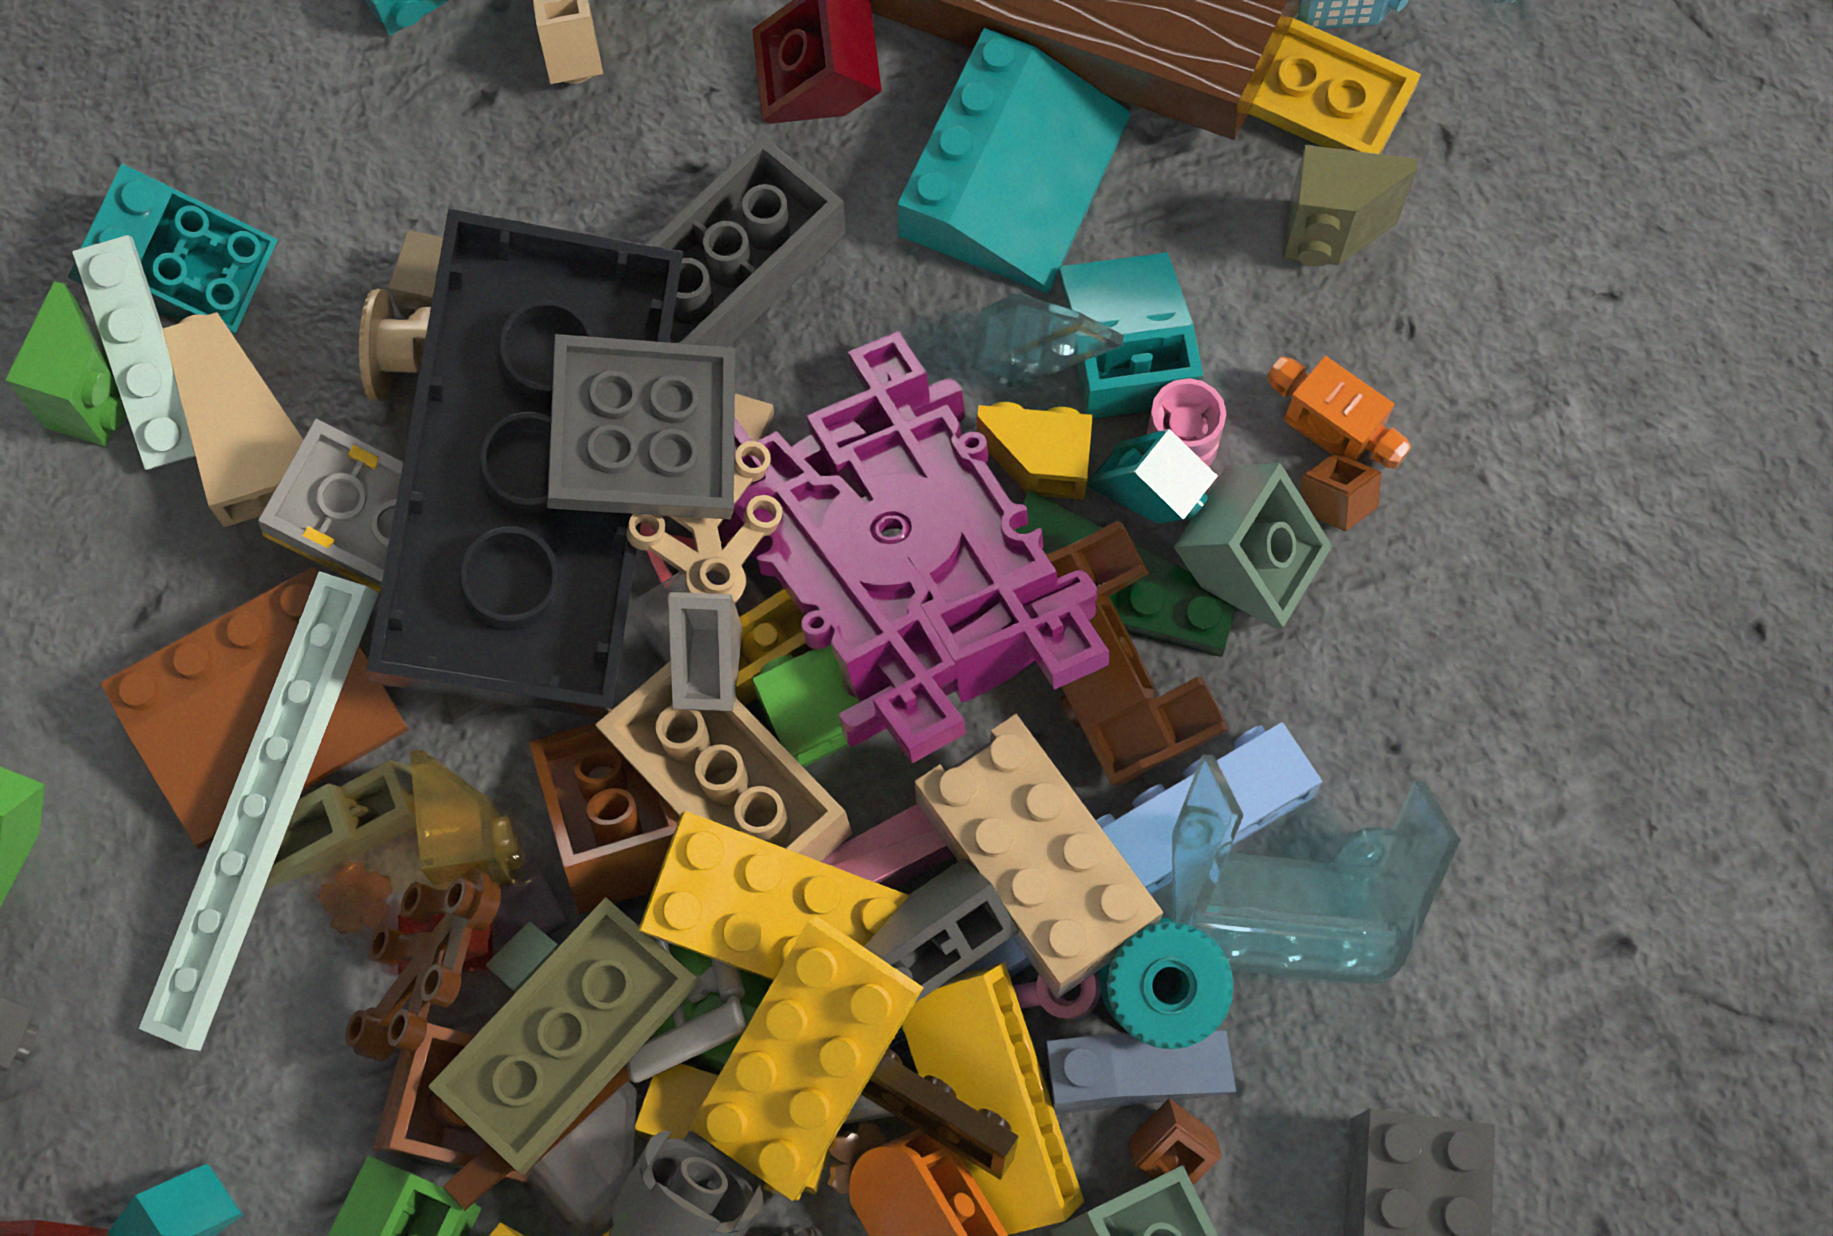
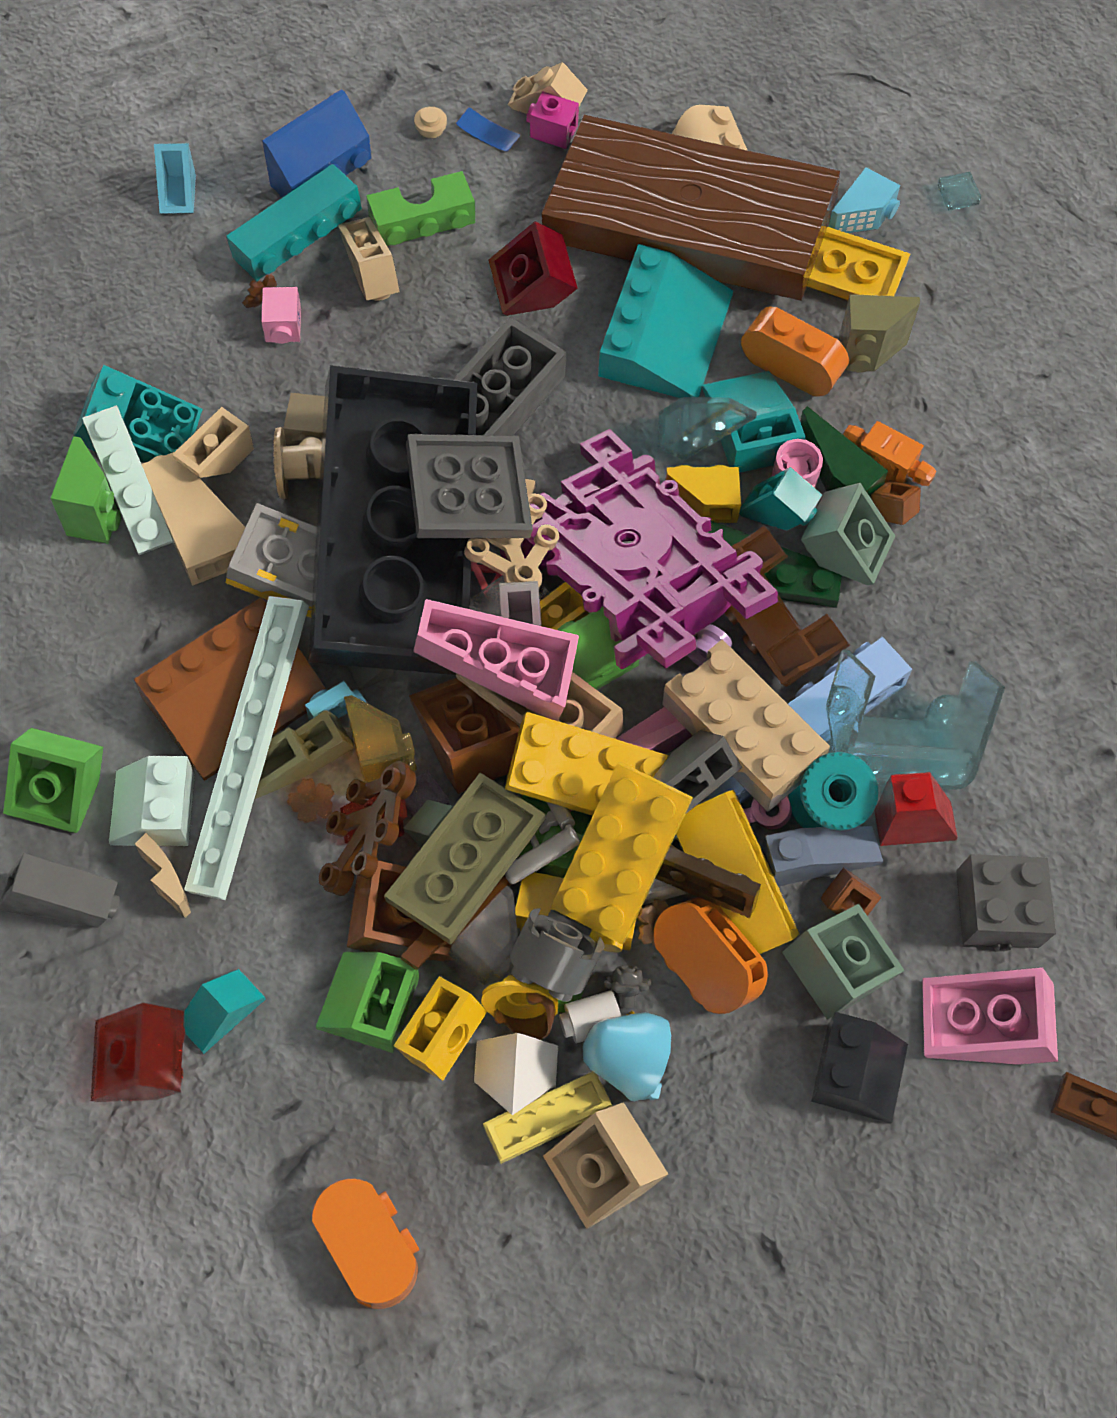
camera: 10 degrees left, 5 degrees down
(113, 881) = (154, 800): none -> light aqua slope
(118, 1011) = (166, 880): none -> tan slope
(280, 309) = (216, 446): none -> tan slope
(386, 58) = (254, 299): none -> reddish brown plant
(397, 741) = (331, 700): none -> medium azure bracket
(415, 97) = (281, 314): none -> bright pink brick
(661, 710) = (501, 654): none -> bright pink wedge
(1005, 701) = (707, 639): none -> lavender wheel
(1211, 226) = (795, 351): none -> orange brick
(1260, 417) = (842, 459): none -> dark green slope
(1296, 1022) = (914, 811): none -> red slope

